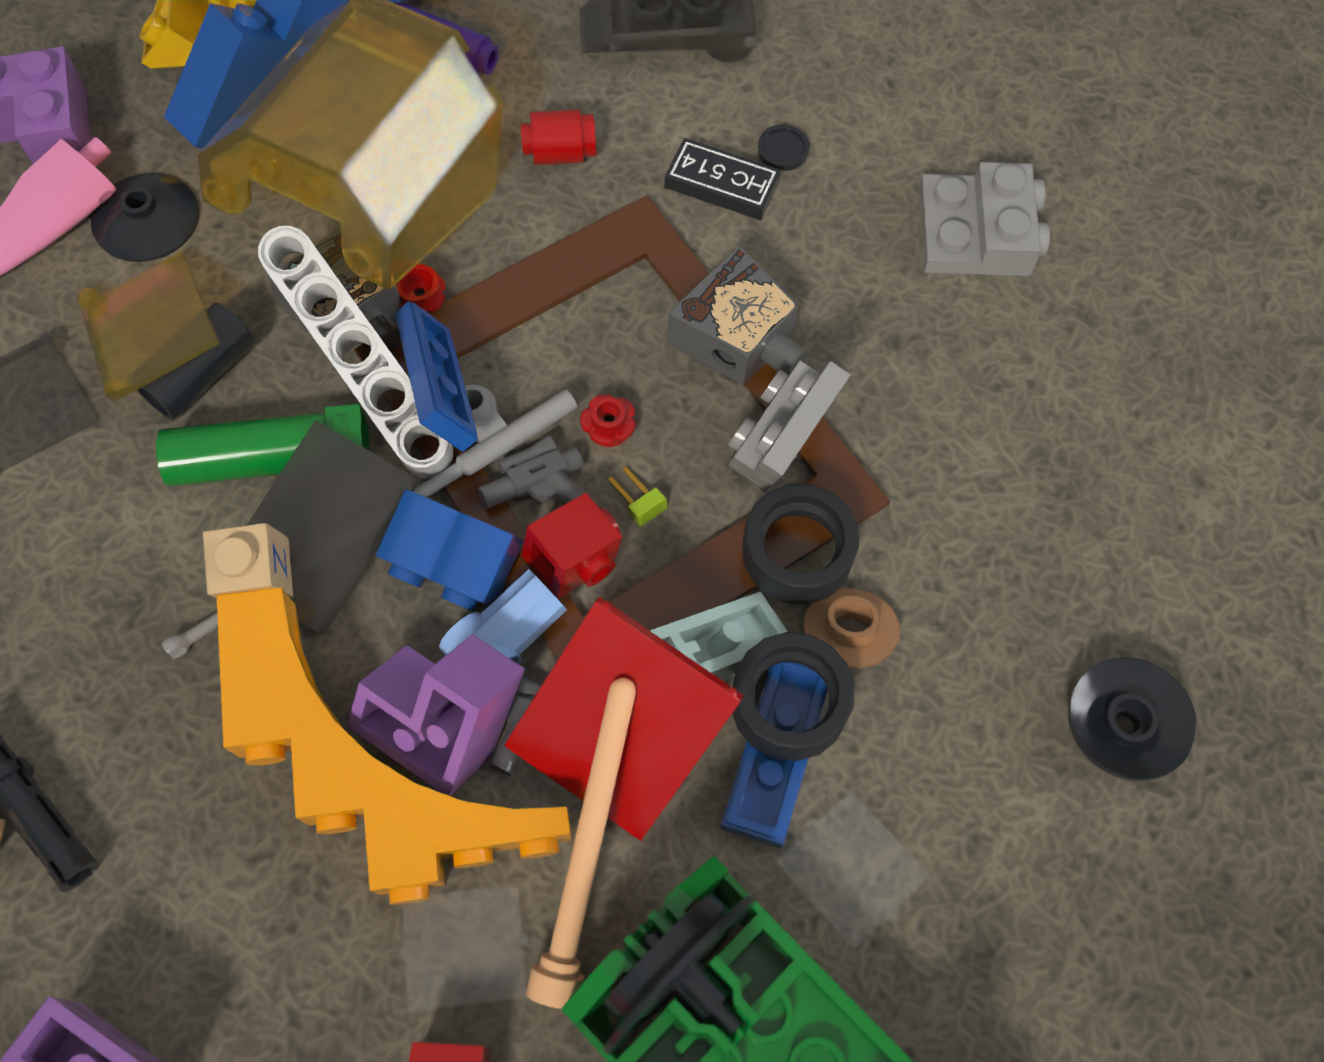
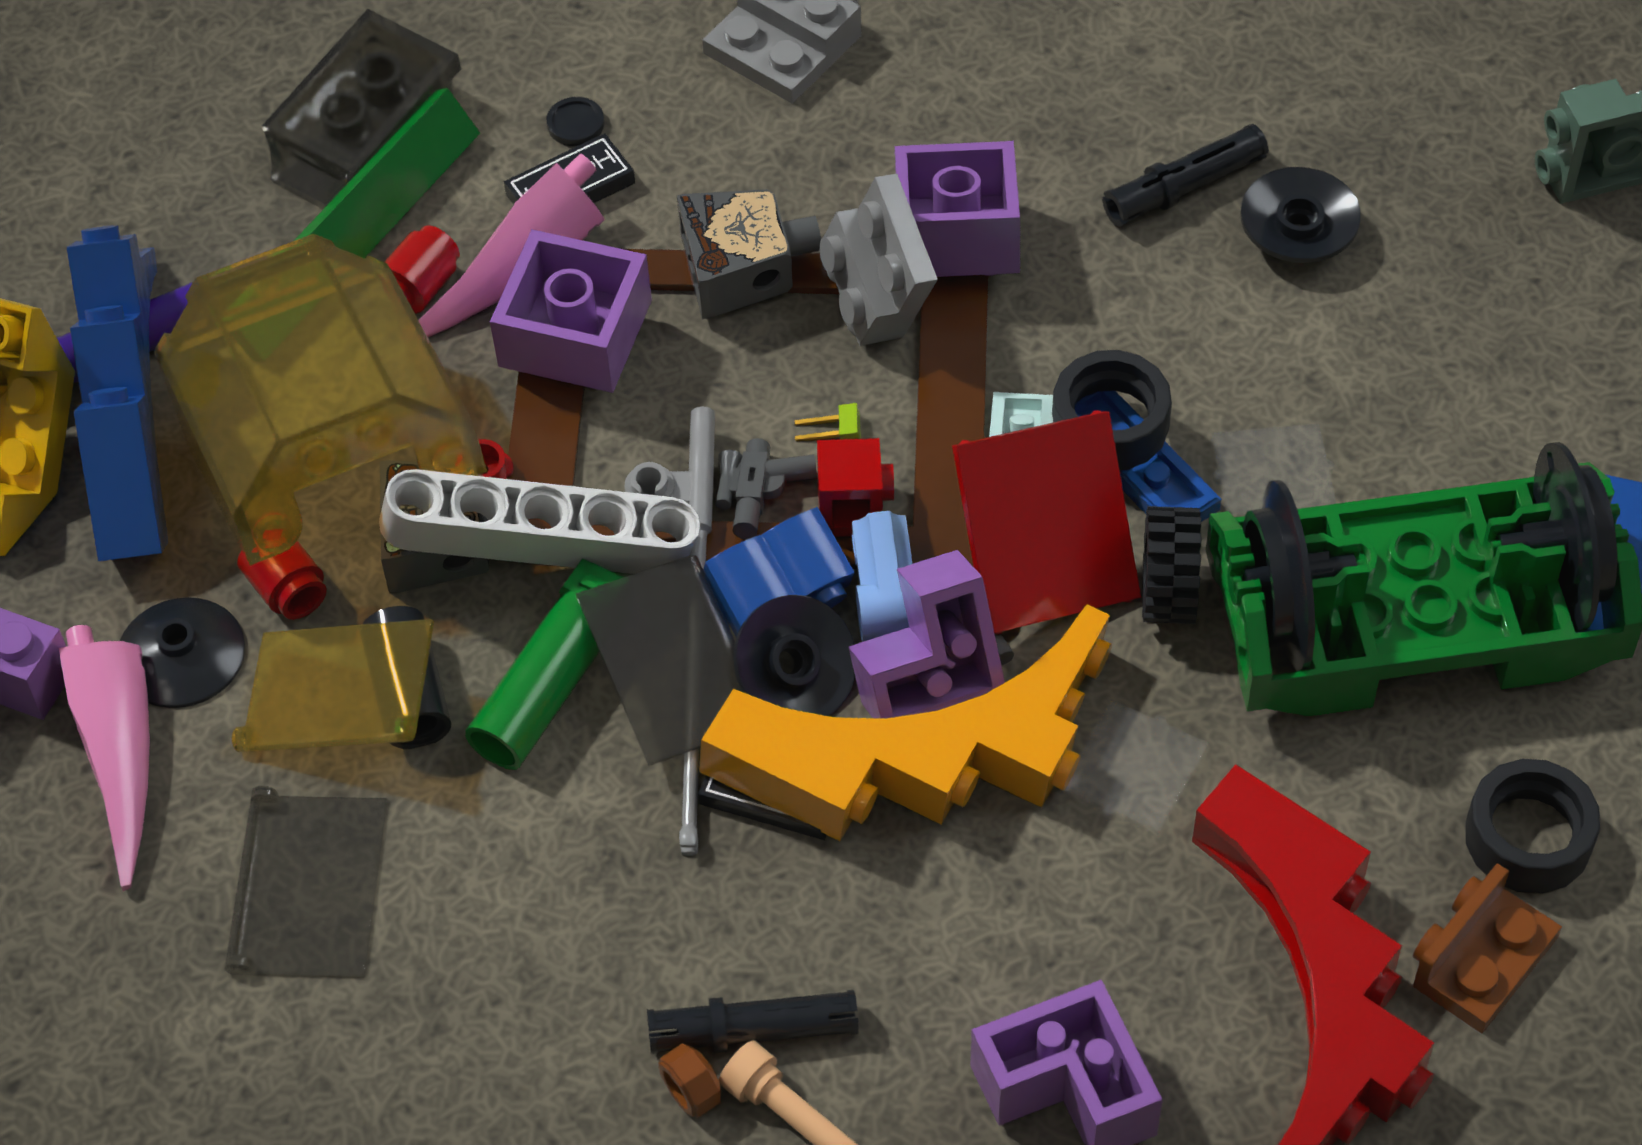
camera: 50 degrees left, 10 degrees down
(234, 238) = (287, 582): none -> red brick
(246, 560) = (680, 711): tan brick -> none
(349, 615) = (816, 642): none -> black dish
(435, 377) = (614, 477): blue tile -> none
(558, 973) = (1208, 700): light nougat piece -> none
(582, 249) = (571, 310): none -> medium lavender brick
(601, 72) = (396, 176): none -> green tile
(608, 433) = (743, 414): red plate -> none
(634, 183) = (550, 206): none -> bright pink piece
(662, 850) = (1171, 565): none -> black tyre
(814, 504) = (988, 295): black tyre -> none
(856, 648) = (1051, 350): medium nougat piece -> none
(897, 446) = (964, 205): none -> medium lavender brick
(1074, 588) = (1165, 184): none -> black pin

